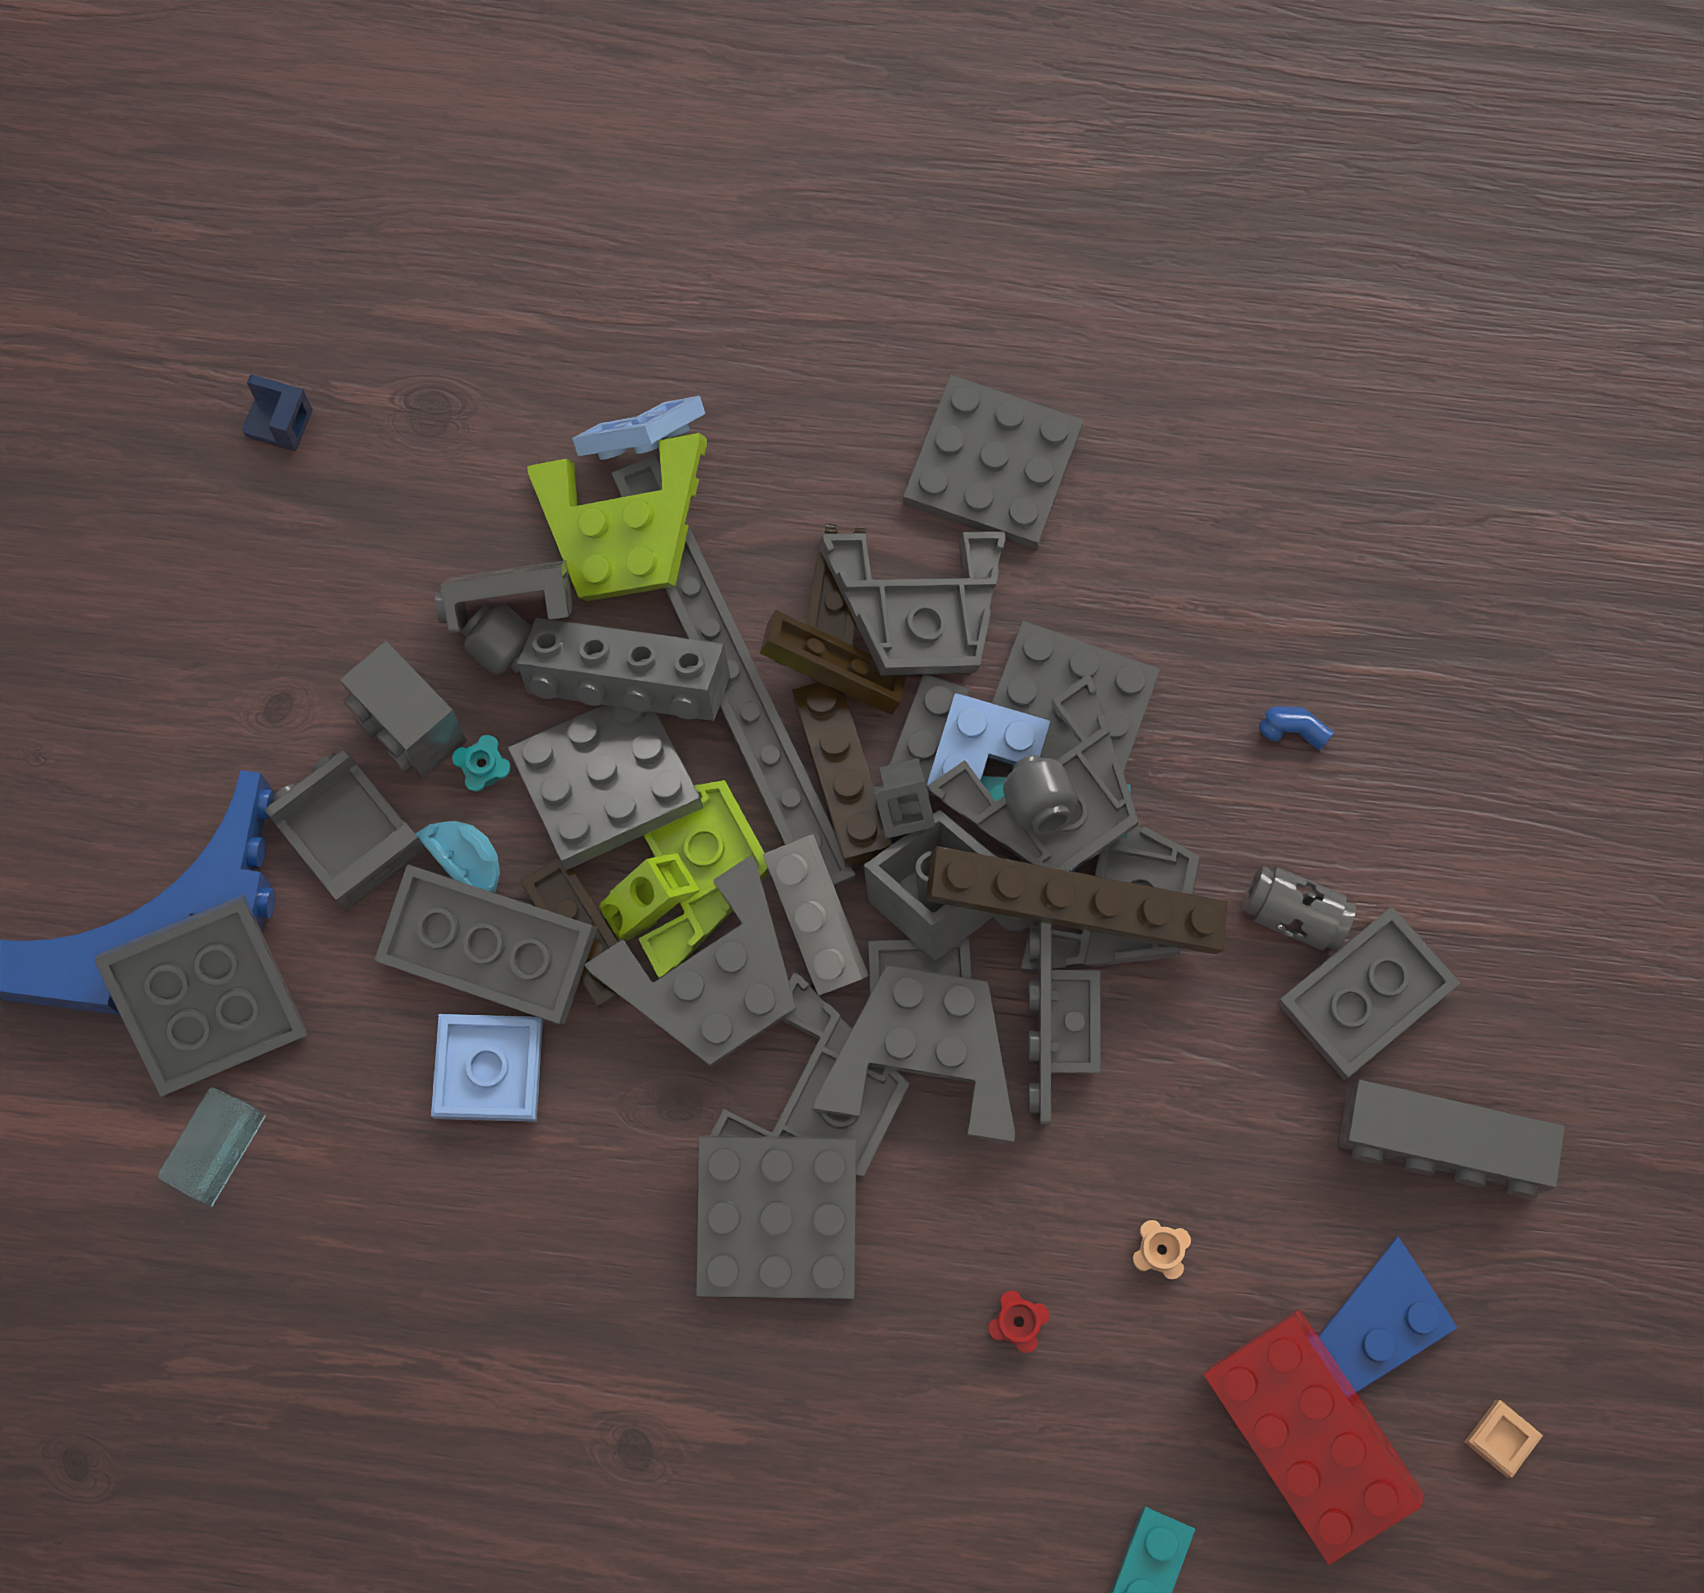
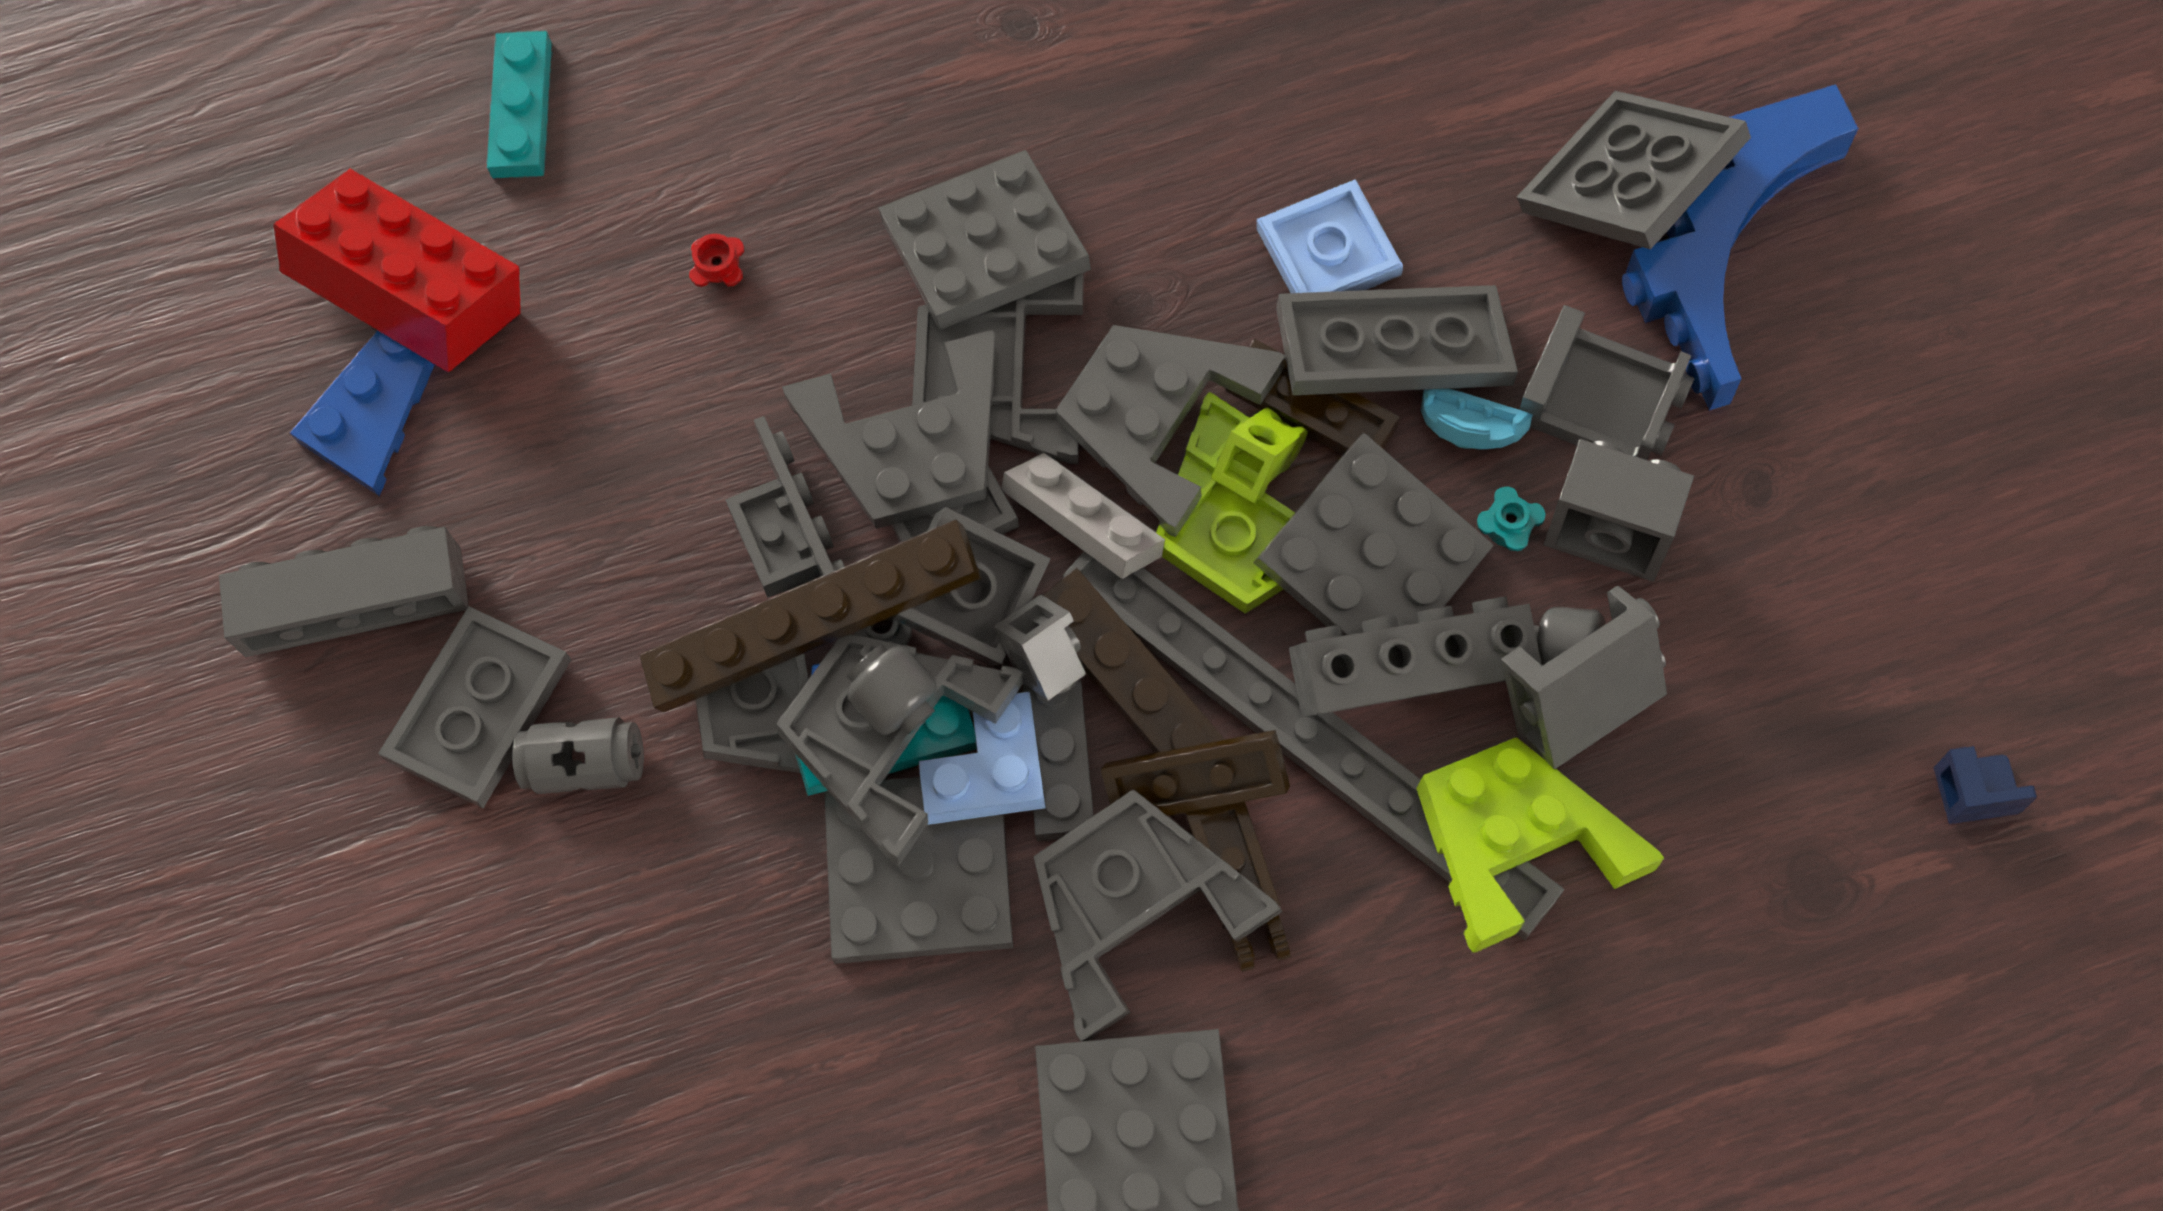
camera: 165 degrees right, 5 degrees down
(211, 1146) = (1541, 77): clear light blue panel -> none
(640, 432) = (1551, 942): light blue plate -> none
(1175, 1242) = (600, 365): light nougat plate -> none
(1295, 720) = (657, 971): blue arm -> none
(1503, 1438) = (220, 365): light nougat tile -> none

